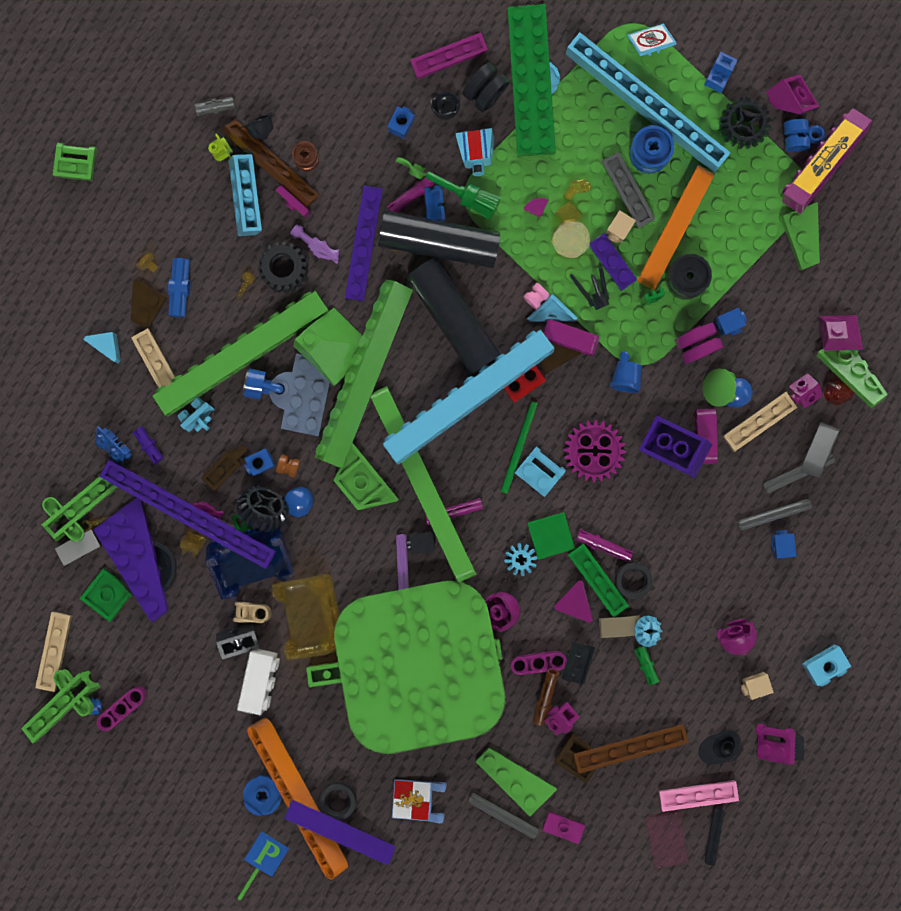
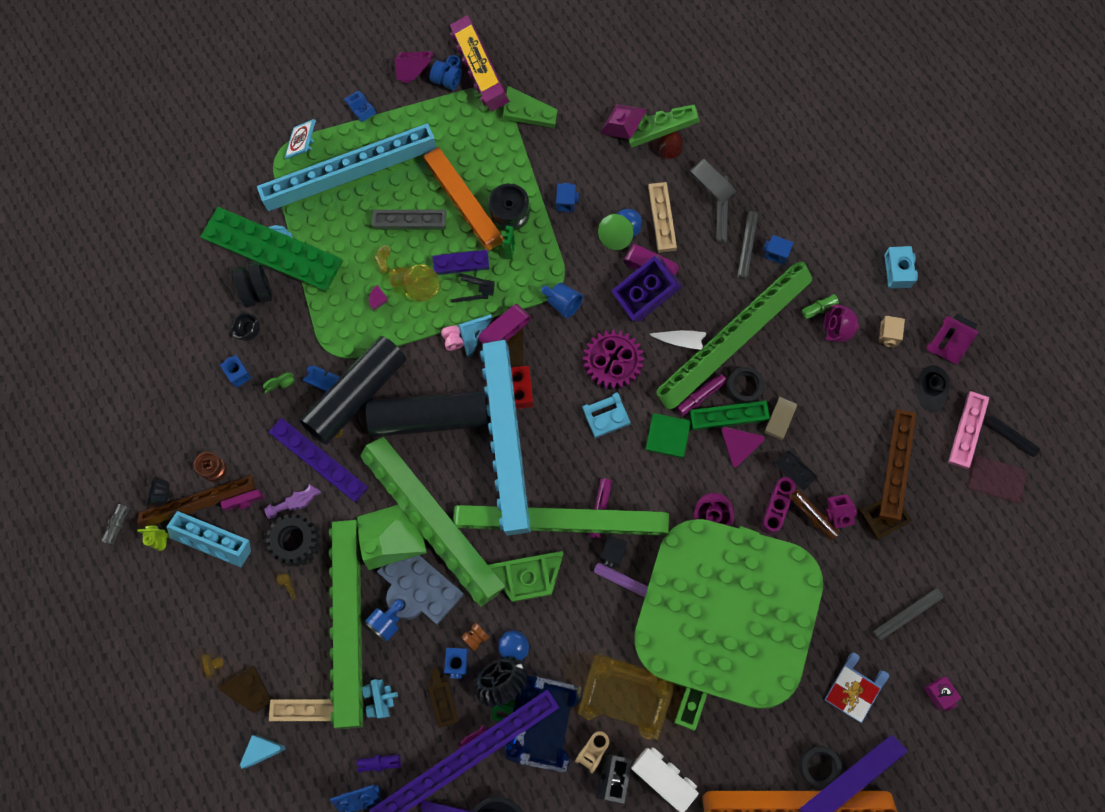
camera: 60 degrees left, 15 degrees down
(71, 167) = (81, 687): bright green plate -> none
(178, 287) = (252, 648): blue piece -> none
(192, 543) = (496, 772): clear yellow tile -> none
(410, 195) = (301, 390): magenta pin -> none
(449, 56) = (207, 303): magenta plate -> none
(450, 873) = (942, 694): none -> magenta brick
(470, 196) = (334, 345): green piece -> none
(476, 149) = (298, 321): torso -> none
(516, 564) = (680, 477): medium azure gear -> none
(519, 447) = (575, 422): green piece -> none
(521, 785) = (882, 584): bright green wing -> none
(563, 827) = (944, 565): magenta plate -> none
(619, 227) = (435, 240): tan brick -> none
(644, 624) = (789, 396): medium azure gear -> none
(646, 665) = (827, 414): green pin -> none
(649, 503) = (686, 339): none -> white sticker
(656, 139) = (387, 183): blue wheel -> none
(677, 548) = (734, 335): none -> bright green beam
(698, 342) = (569, 227): magenta wheel -> none
(747, 610) = (819, 306): none -> bright green axle
(758, 115) = (406, 101): black gear -> none
(805, 391) = (656, 168): magenta brick -> none

